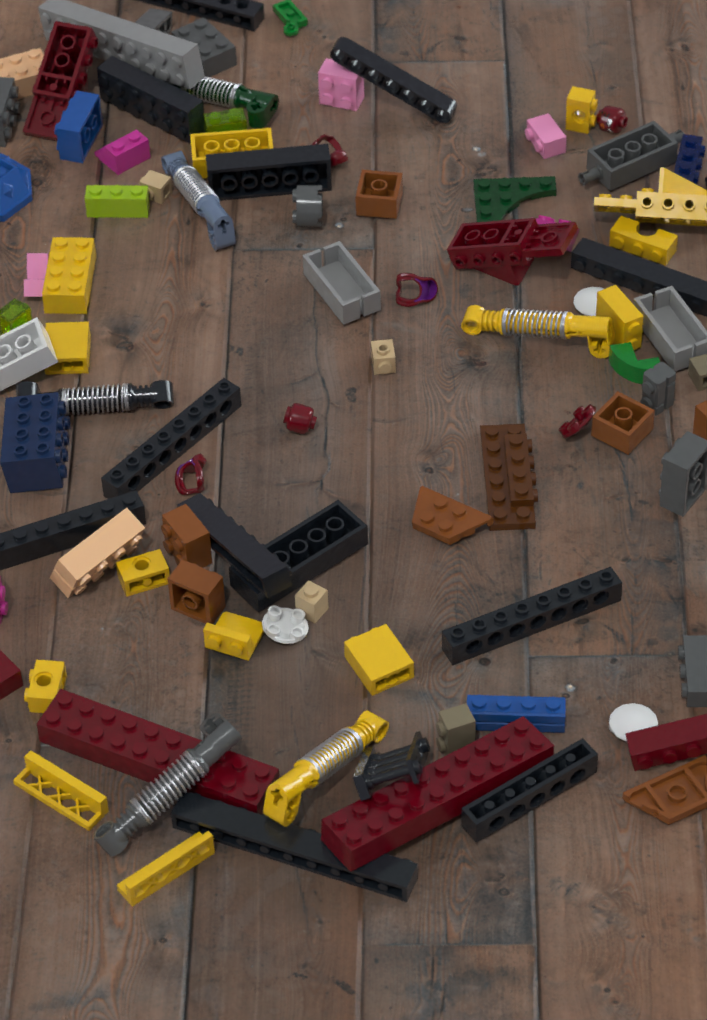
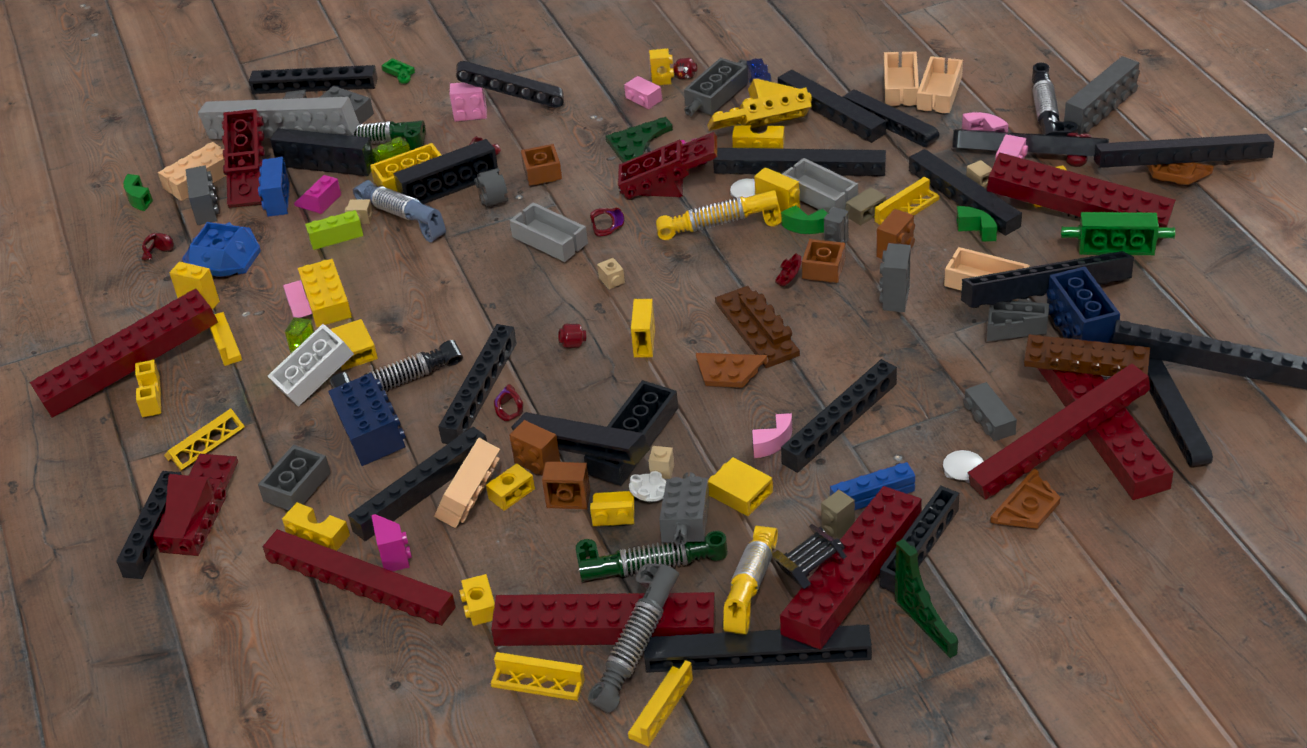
camera: 20 degrees left, 5 degrees down
(238, 705) = (631, 561): none -> dark green piece
(300, 665) = (684, 509): none -> dark grey brick
(377, 436) = (643, 328): none -> yellow brick
(437, 617) = (770, 440): none -> bright pink brick
(483, 857) = (916, 600): none -> dark green plate

